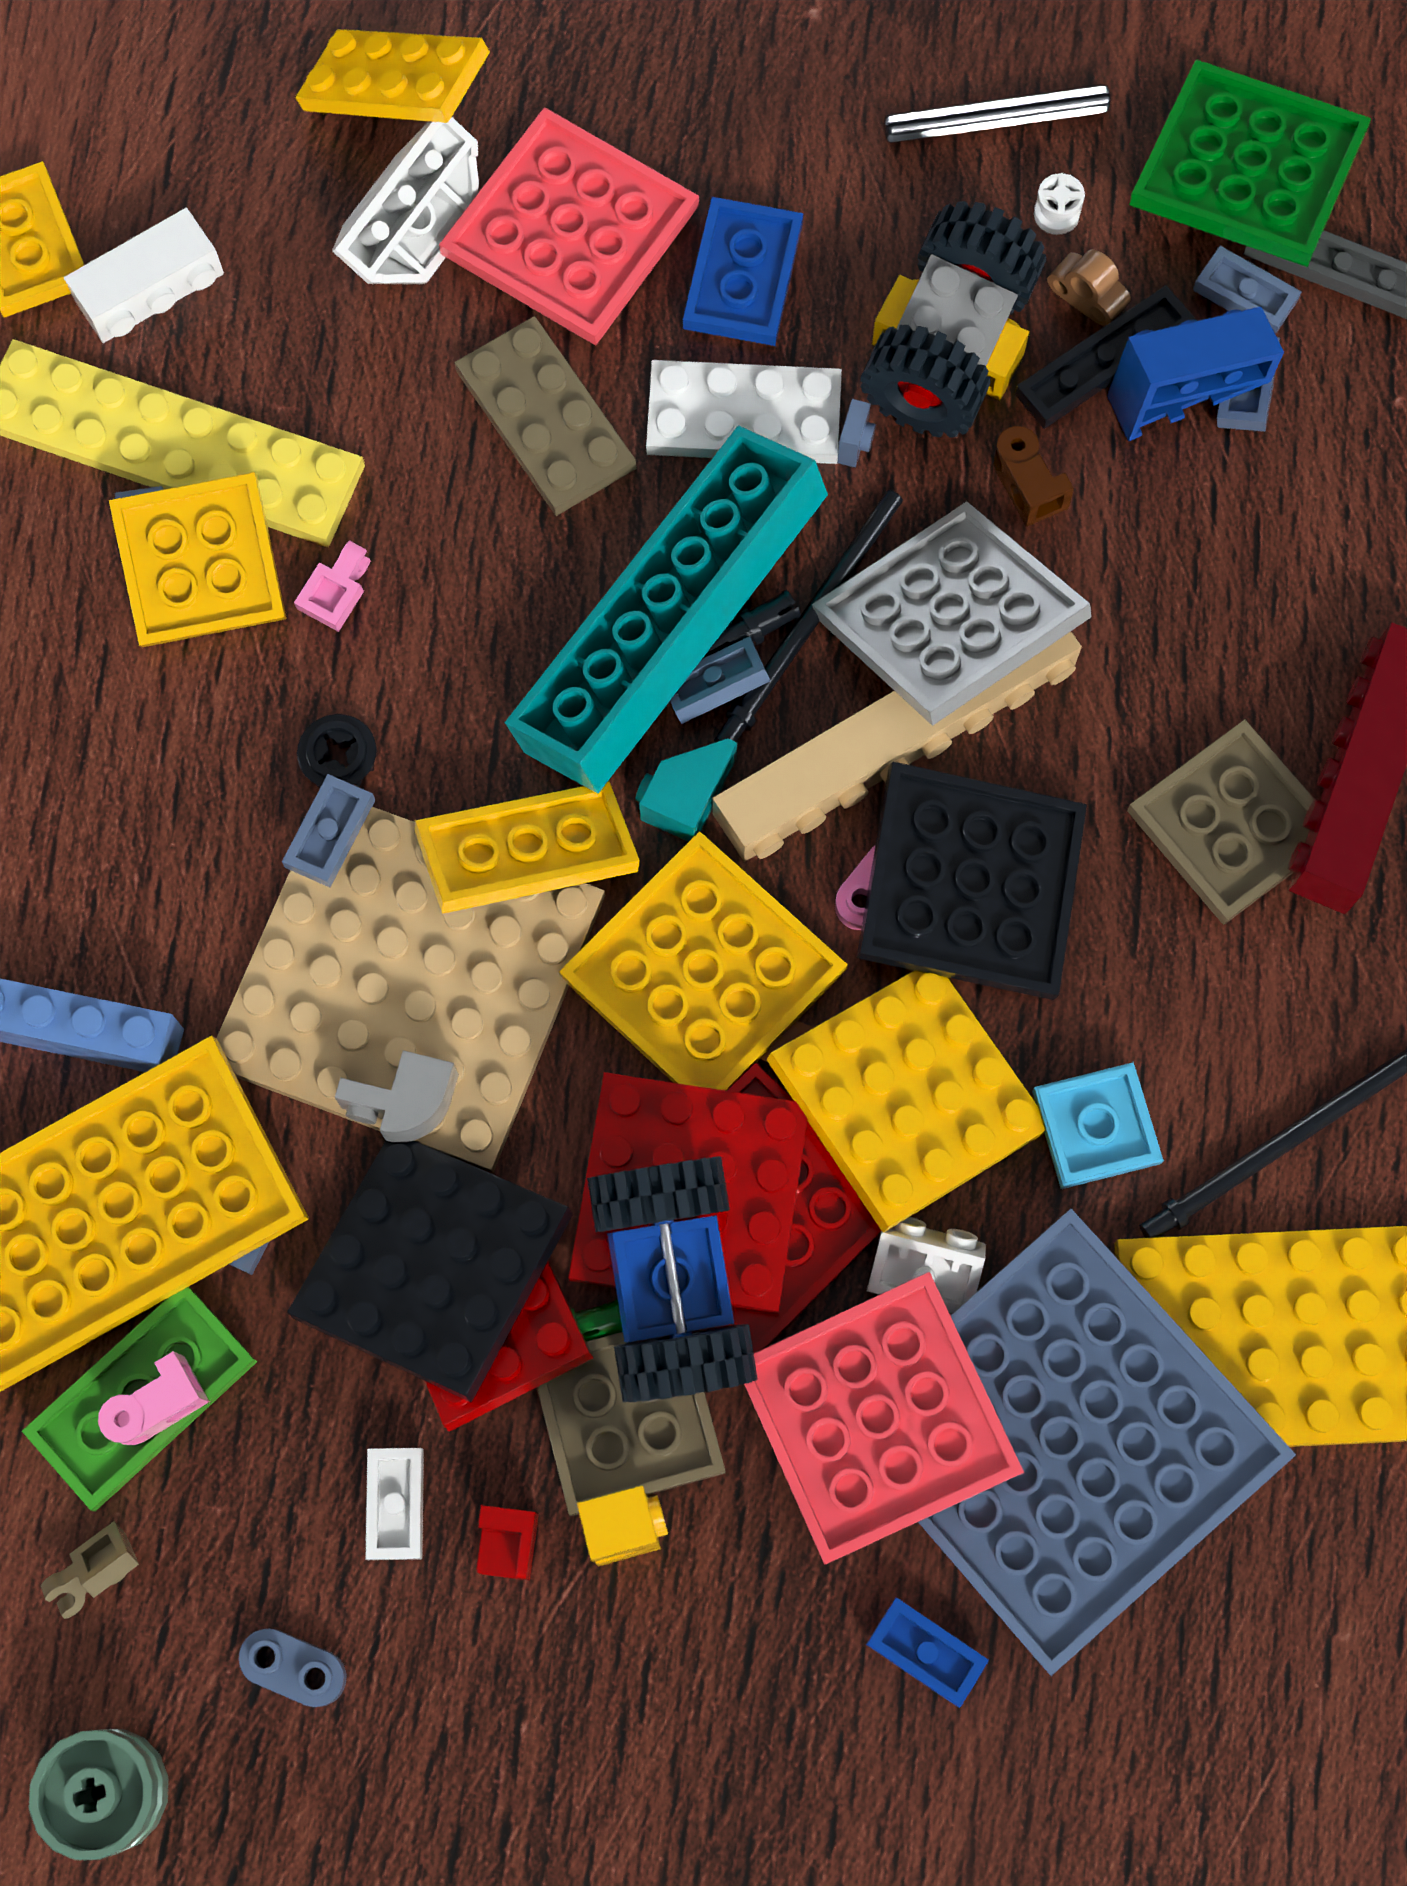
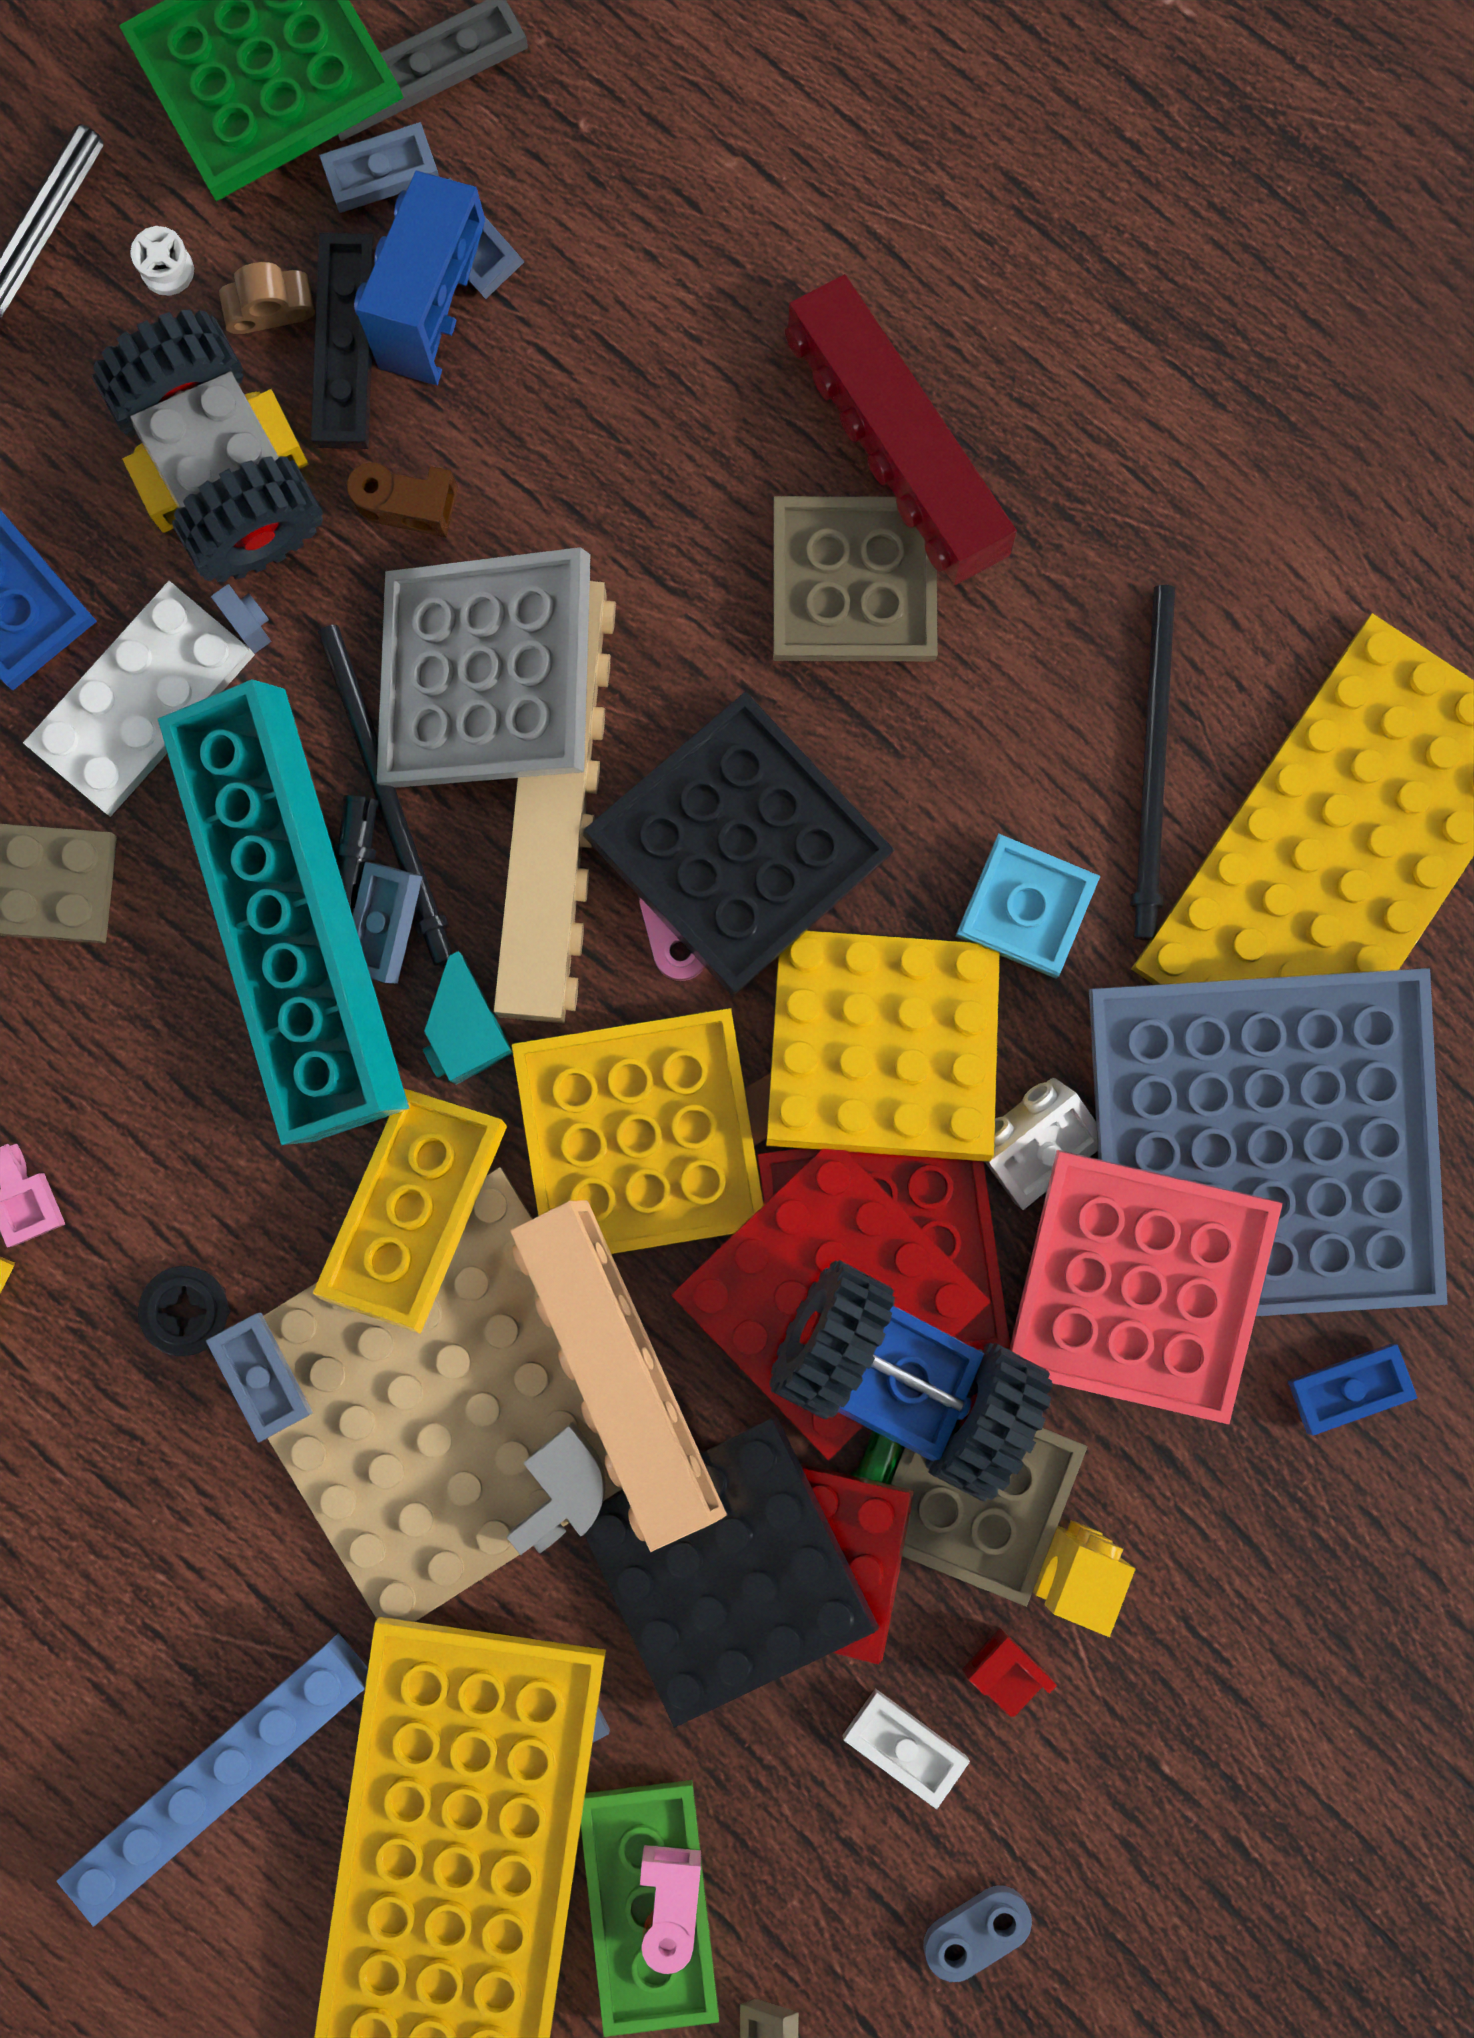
camera: 60 degrees left, 10 degrees up
(516, 1072) = (617, 1374): none -> light nougat brick

